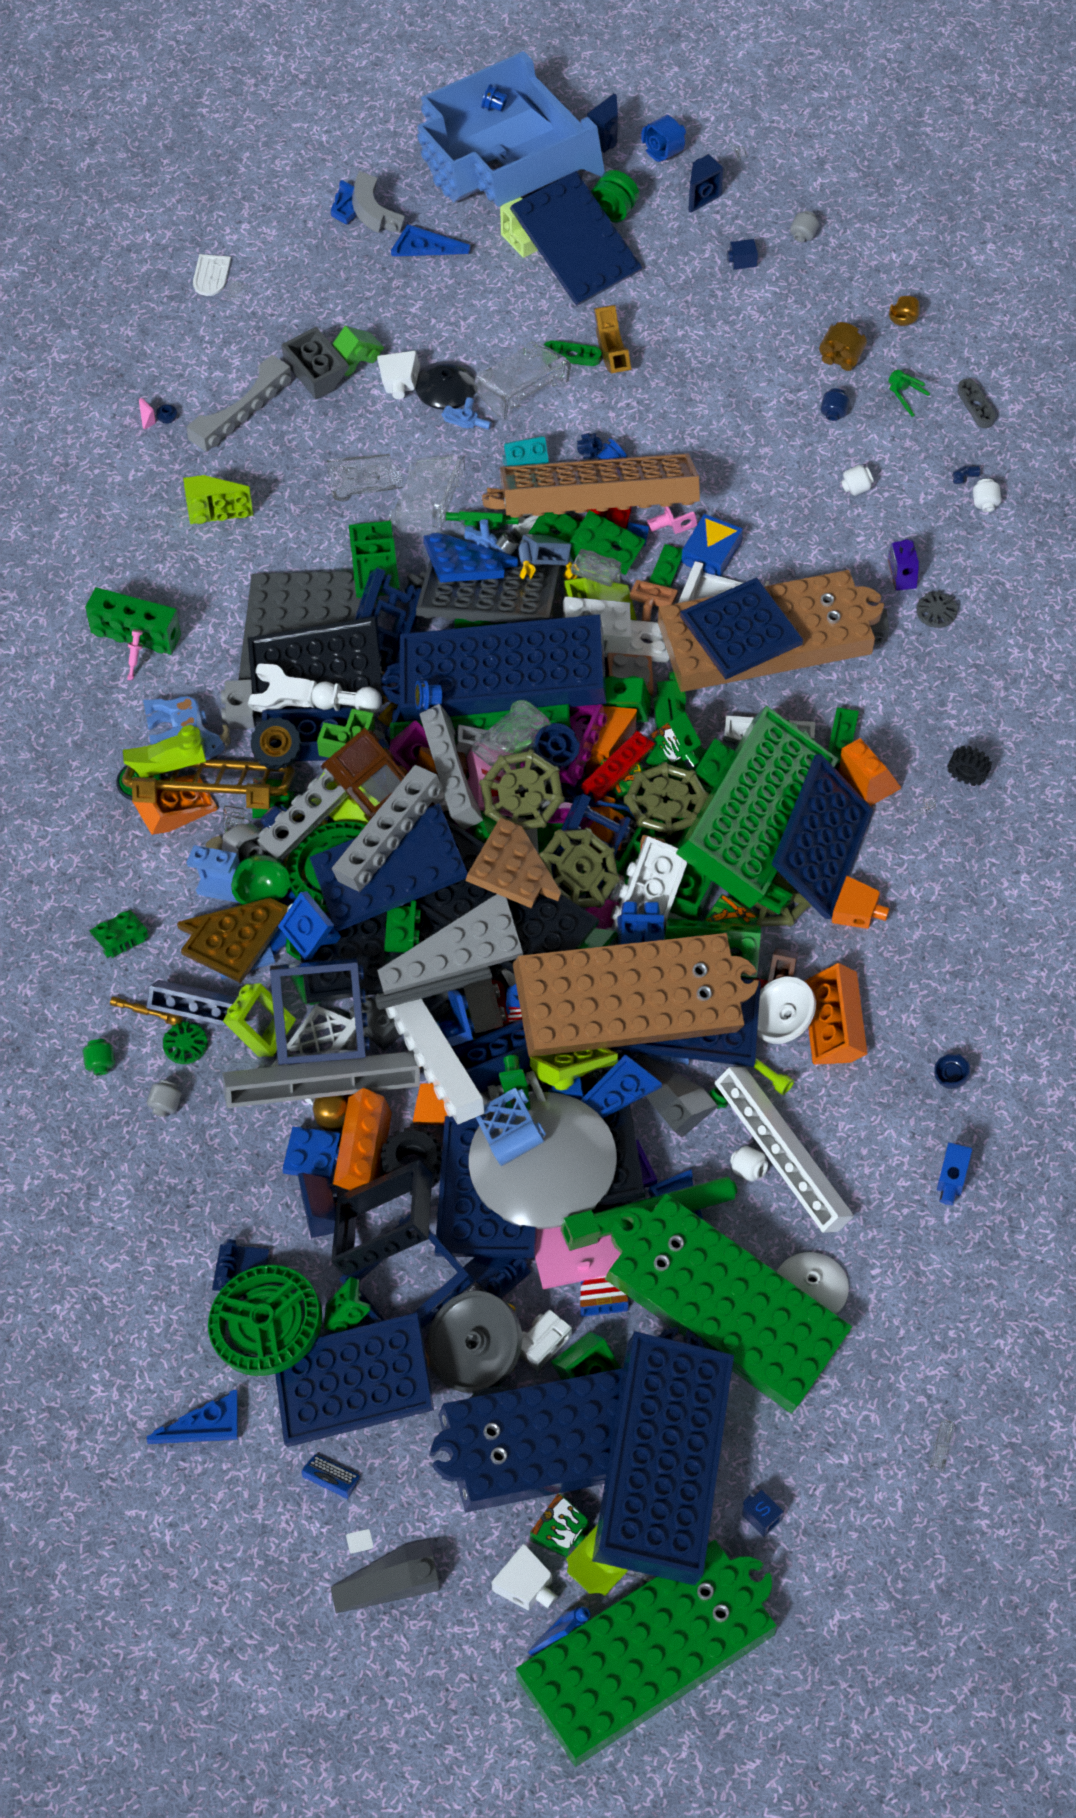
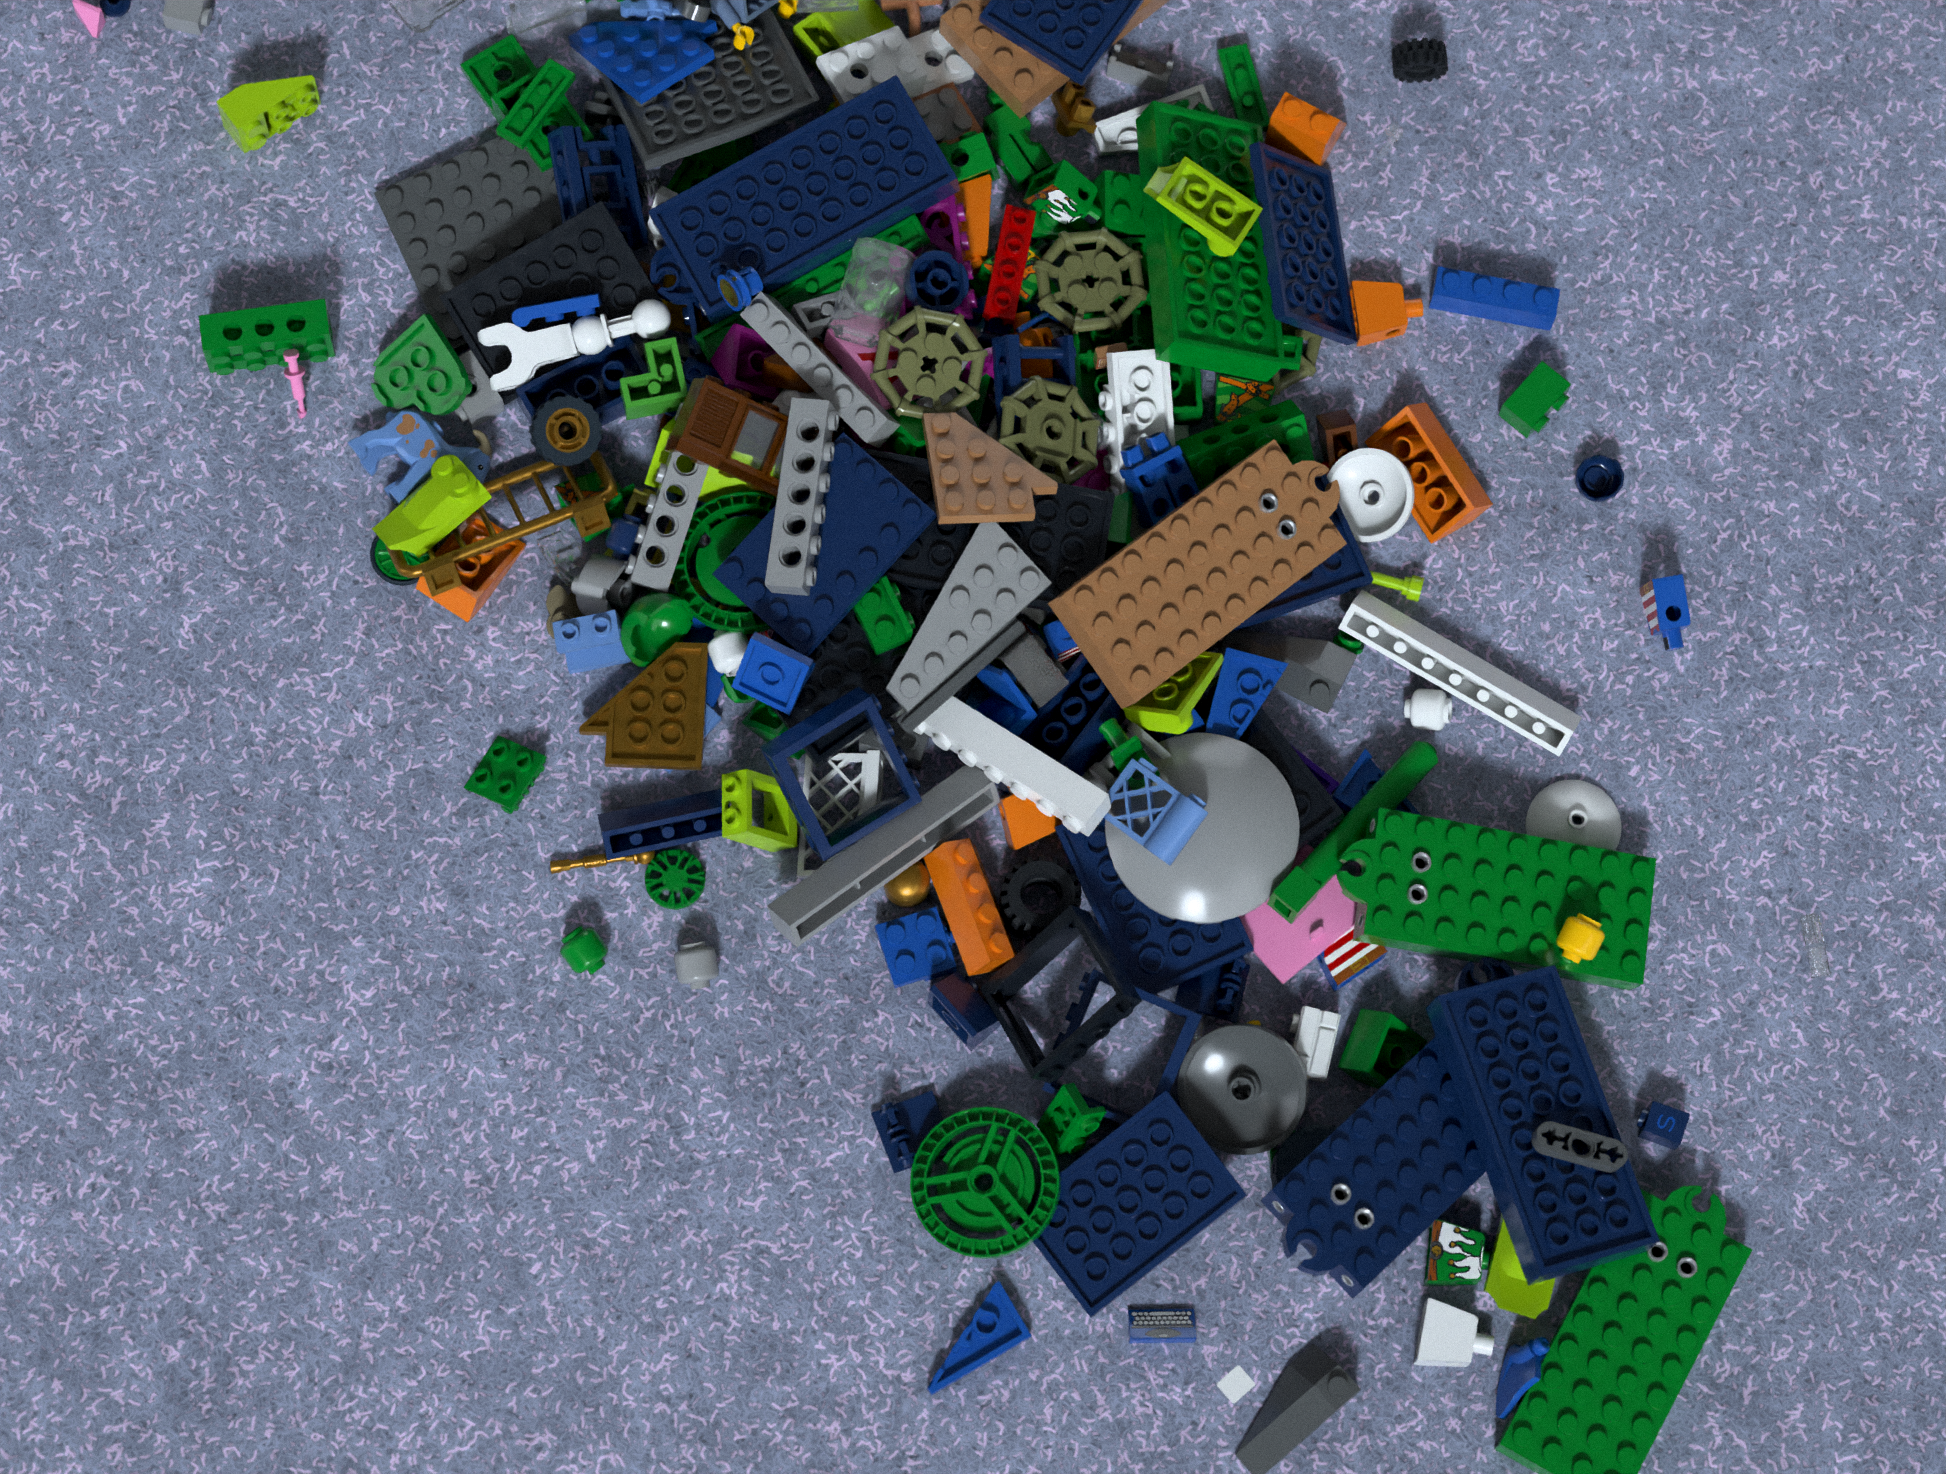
camera: 35 degrees left, 15 degrees up
(213, 678) = (421, 371): none -> green plate
(312, 671) = (555, 309): none -> blue plate
(373, 554) = (535, 103): none -> green plate
(678, 1468) = (1599, 1162): none -> dark grey beam
(719, 703) = (1073, 110): none -> pearl gold hips
(762, 1347) = (1580, 938): none -> yellow head
(763, 776) = (1204, 204): none -> lime slope
(778, 699) = (1139, 70): none -> light grey hinge
(934, 1002) = (1535, 400): none -> green brick
(941, 929) = (1494, 298): none -> blue brick

